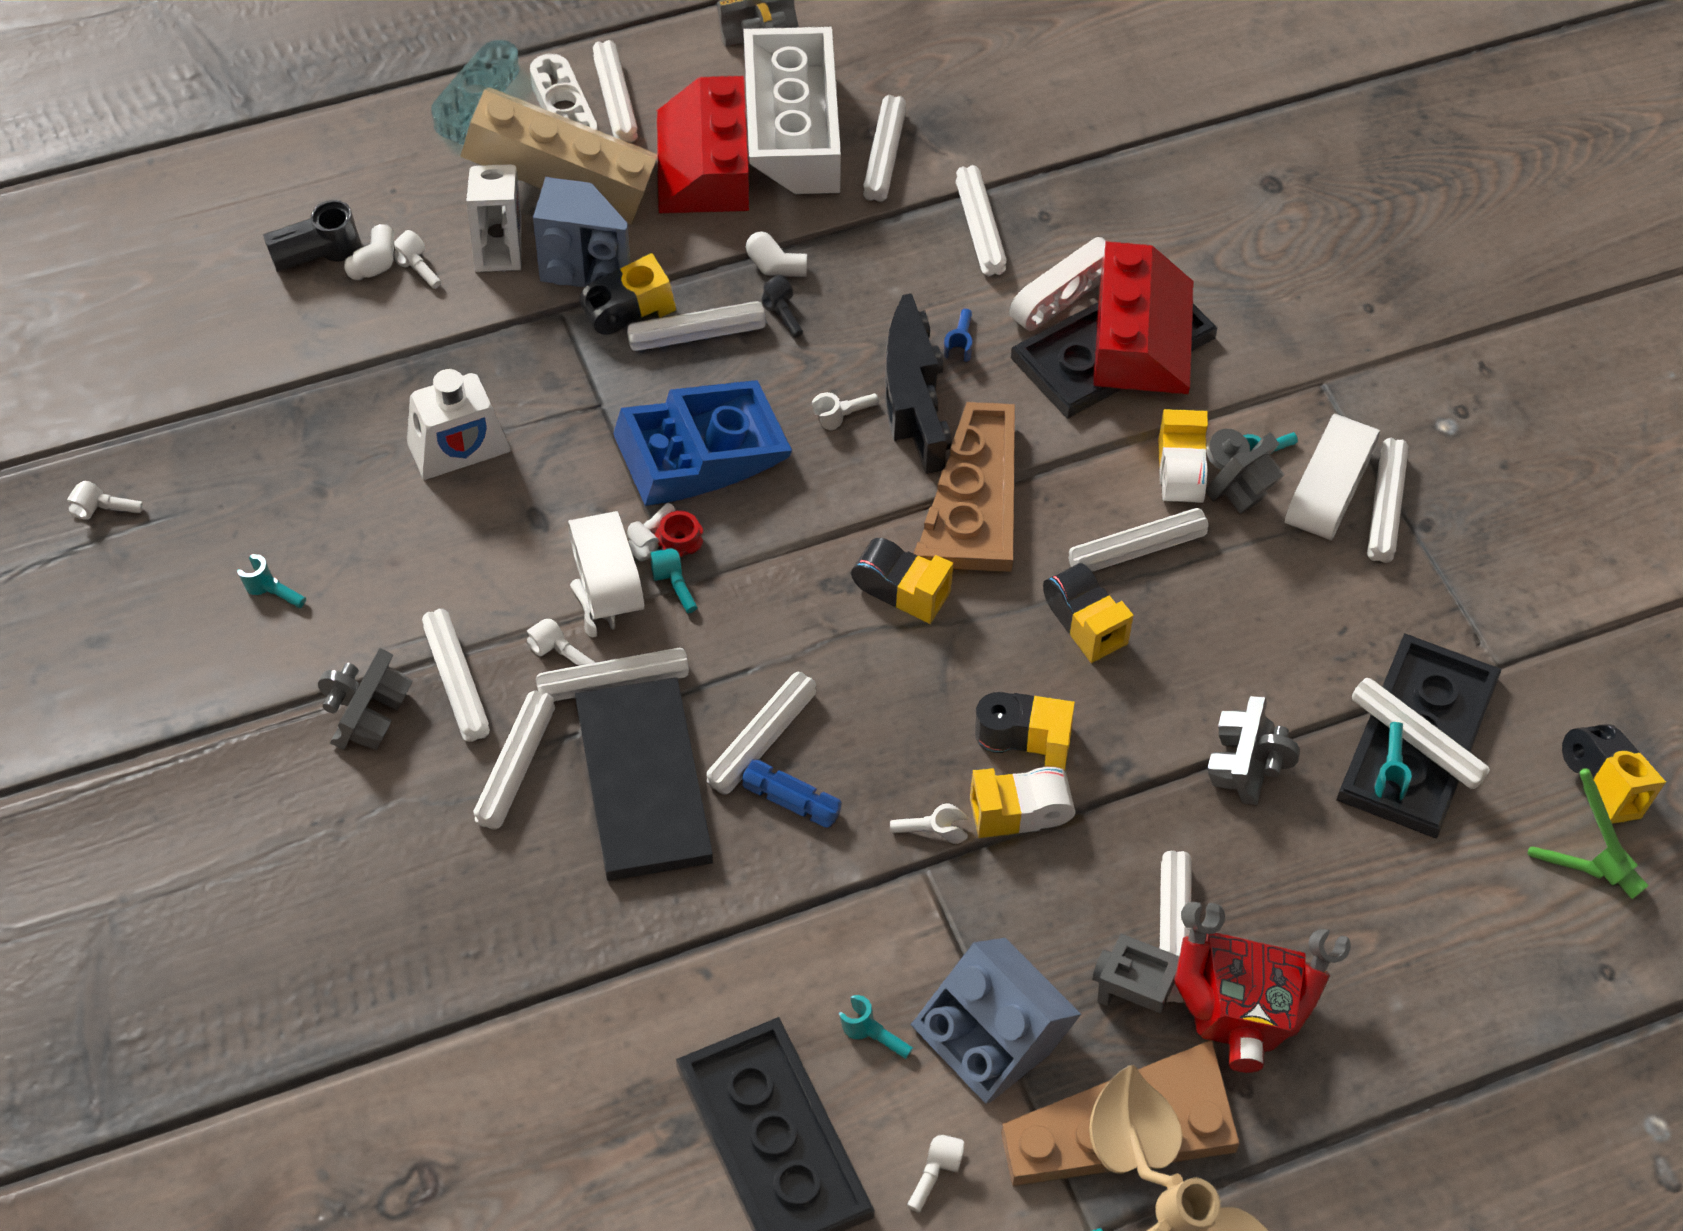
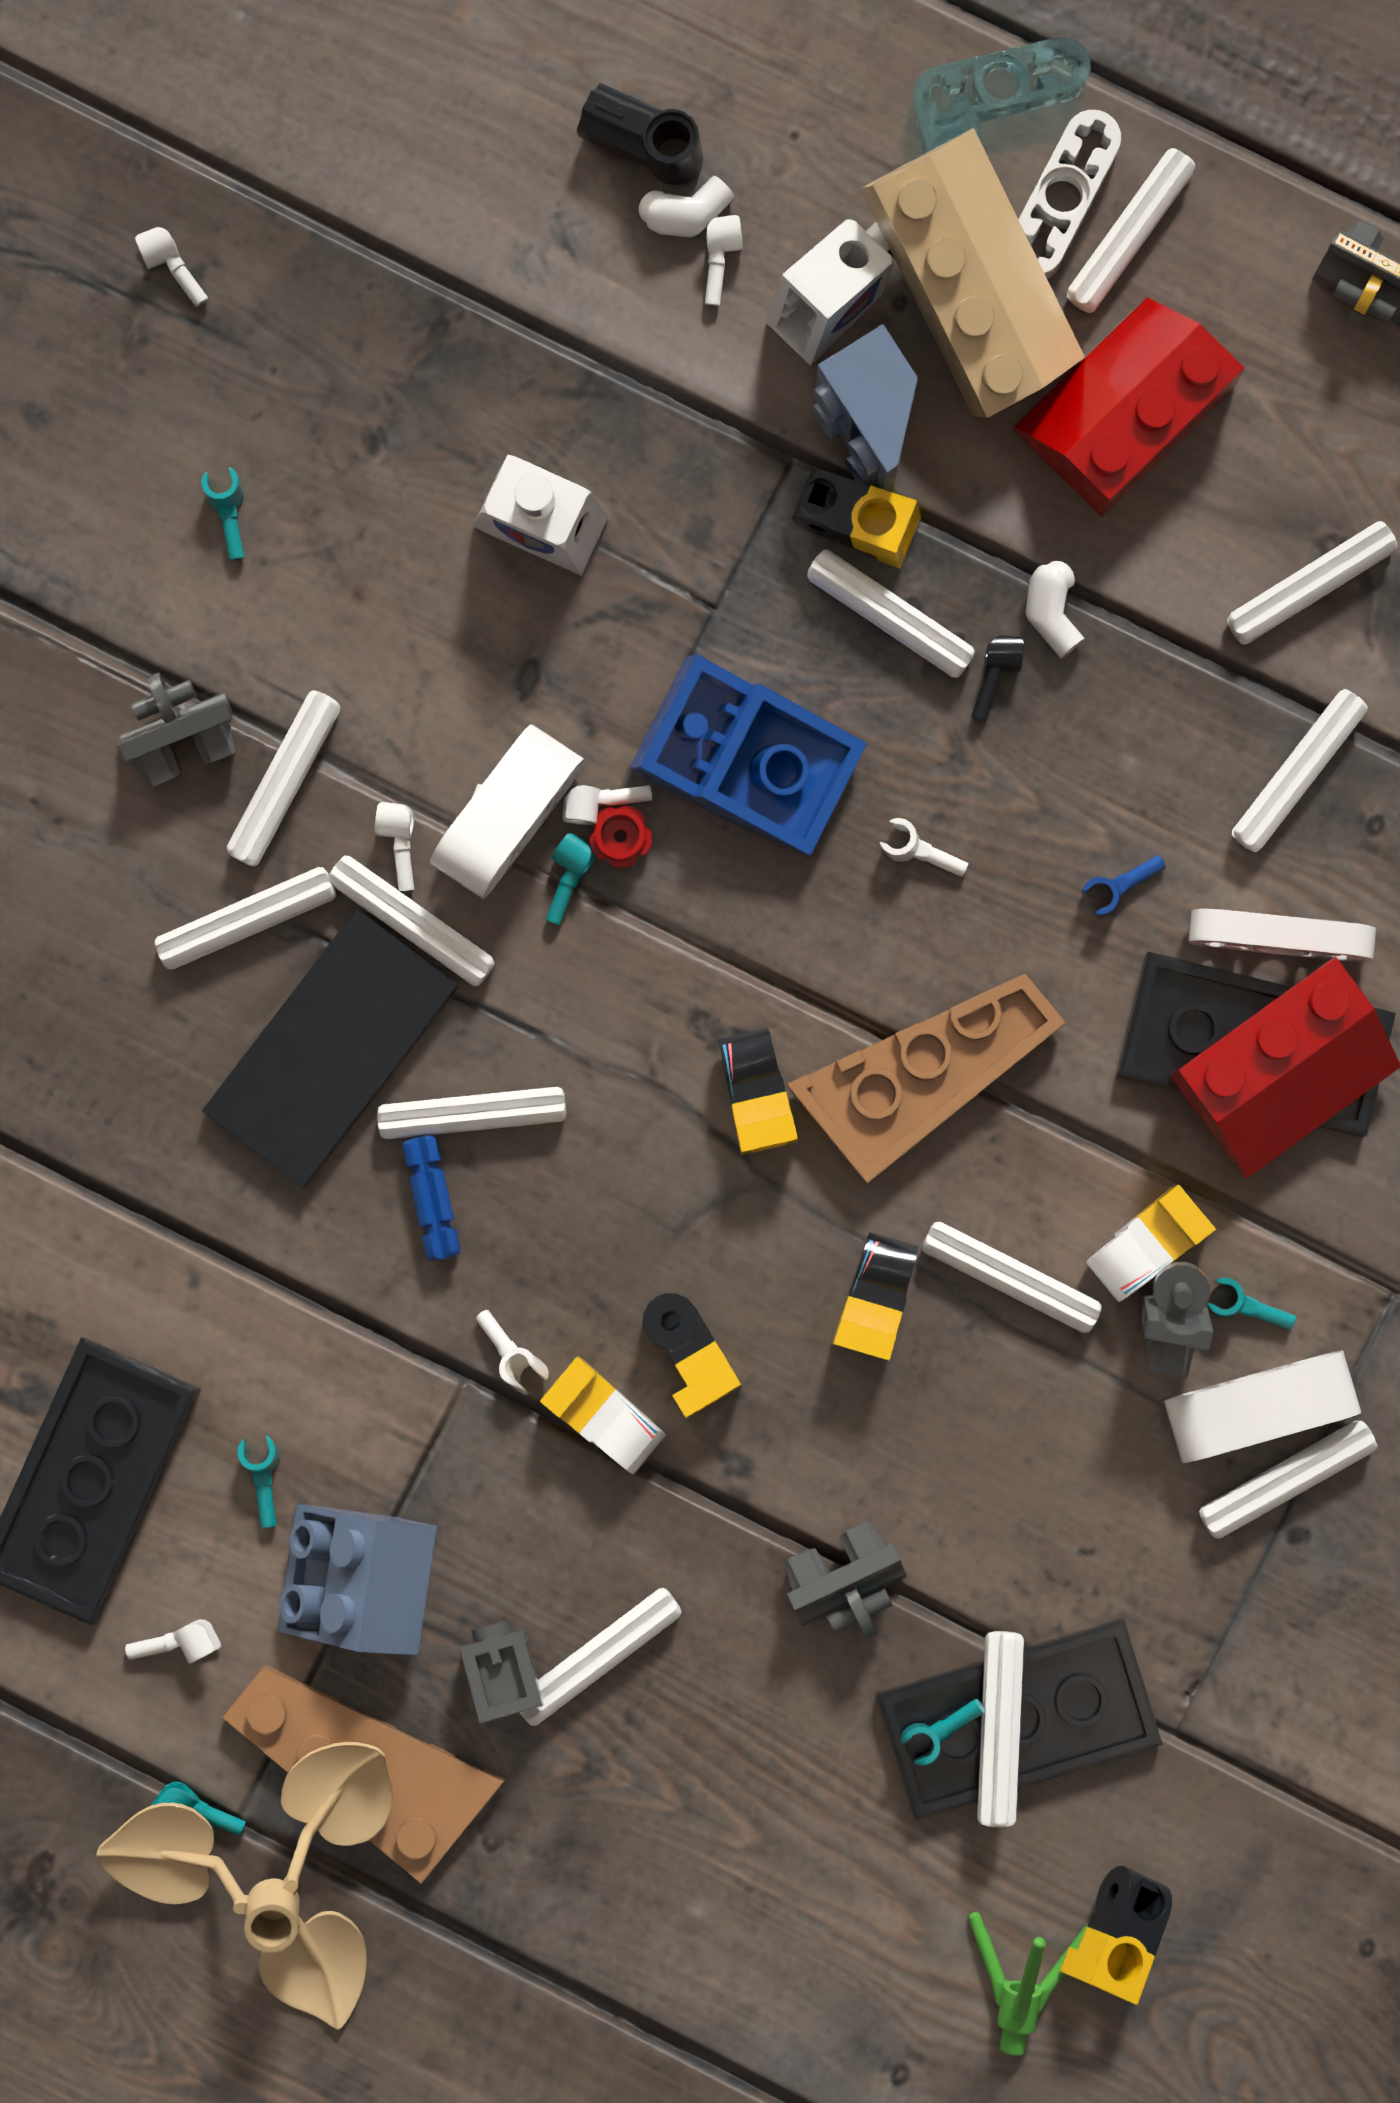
camera: 55 degrees right, 30 degrees up
(793, 107) = (1258, 449): white slope -> none
(912, 384) = (1020, 877): black slope -> none
(1249, 989) = (570, 1788): red torso -> none

